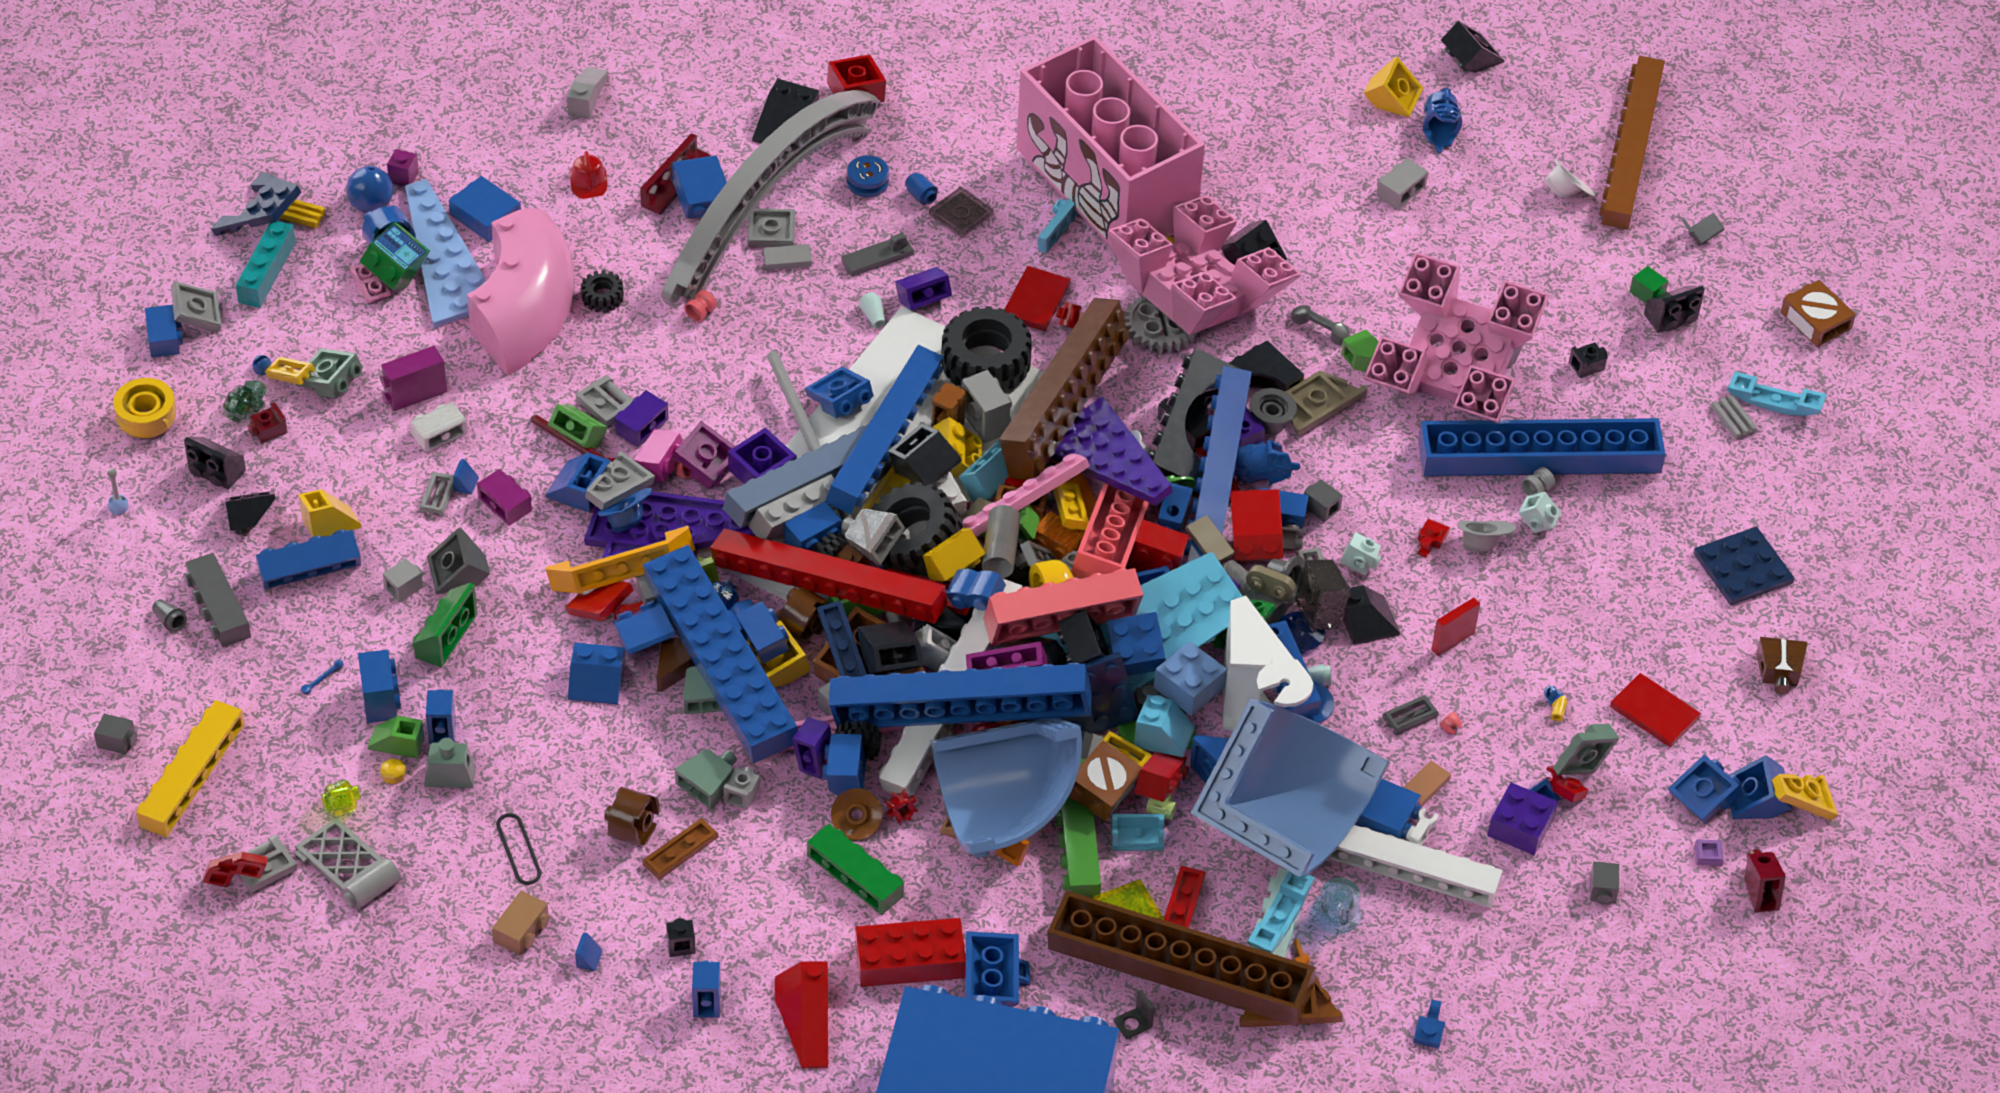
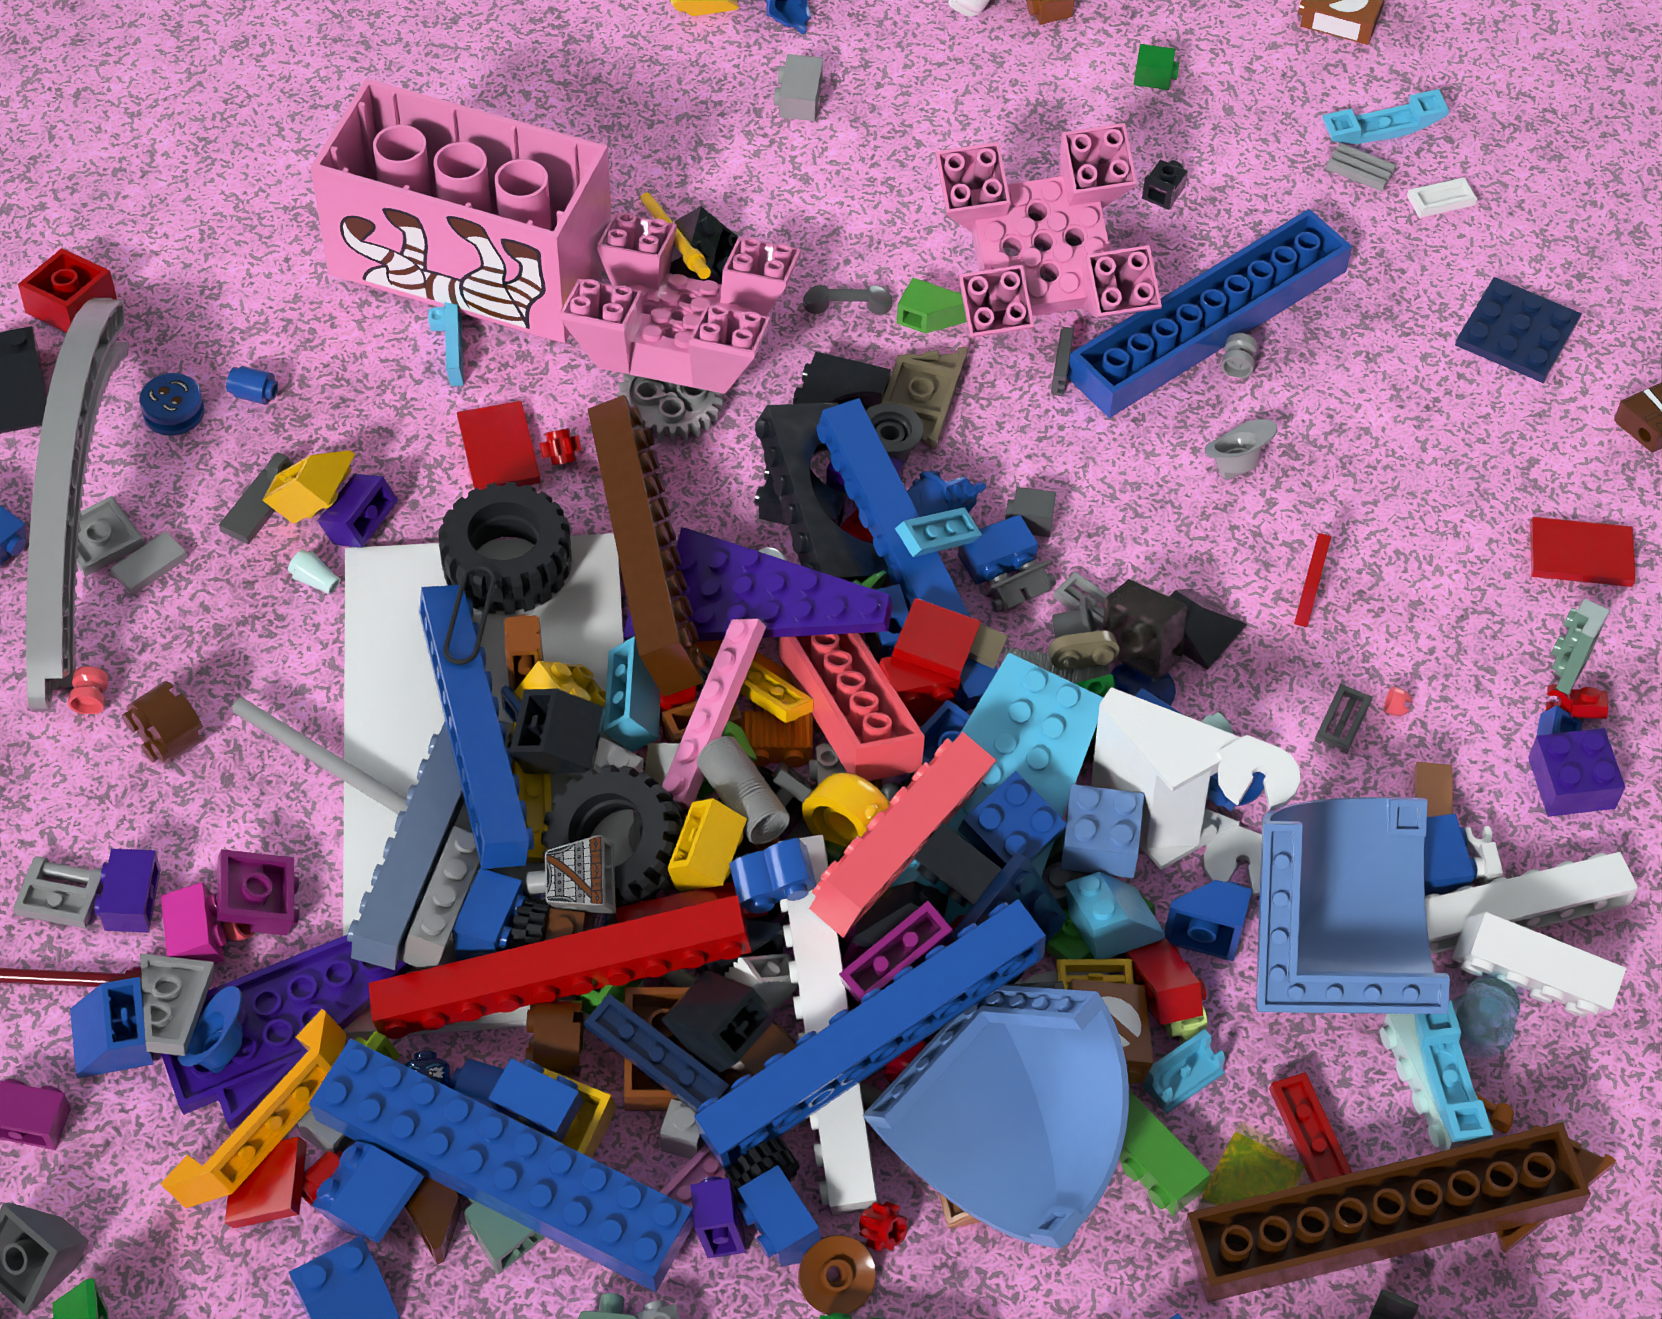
camera: 35 degrees left, 5 degrees up
(577, 426) = (51, 952): bright green brick -> none
(725, 343) = (164, 723): none -> reddish brown brick
(758, 455) = (339, 858): dark purple brick -> none
(840, 392) = (364, 704): blue plate -> none
(905, 258) = (309, 485): none -> yellow slope
(934, 377) = (483, 619): none -> black piece
(961, 212) = (321, 388): clear smoke tile -> none
(986, 406) = (569, 619): light grey brick -> none
(1184, 527) = (936, 638): none -> red tile
(1230, 244) = (692, 257): none -> yellow bar
(1239, 471) = (938, 531): none -> medium azure hinge
(1256, 526) = (1000, 586): red slope -> none
(1361, 554) = (1132, 553): light aqua brick -> none
(1384, 887) = (1538, 964): none -> white brick
(1411, 433) = (1062, 361): none -> dark grey tile
(1432, 535) = (1181, 483): red plate -> none
(1539, 512) = (1277, 389): light aqua brick -> none
(1557, 701) = (1479, 604): arm -> none
(1674, 308) = (1204, 75): black slope -> none
(1771, 463) = (1442, 197): none -> white tile

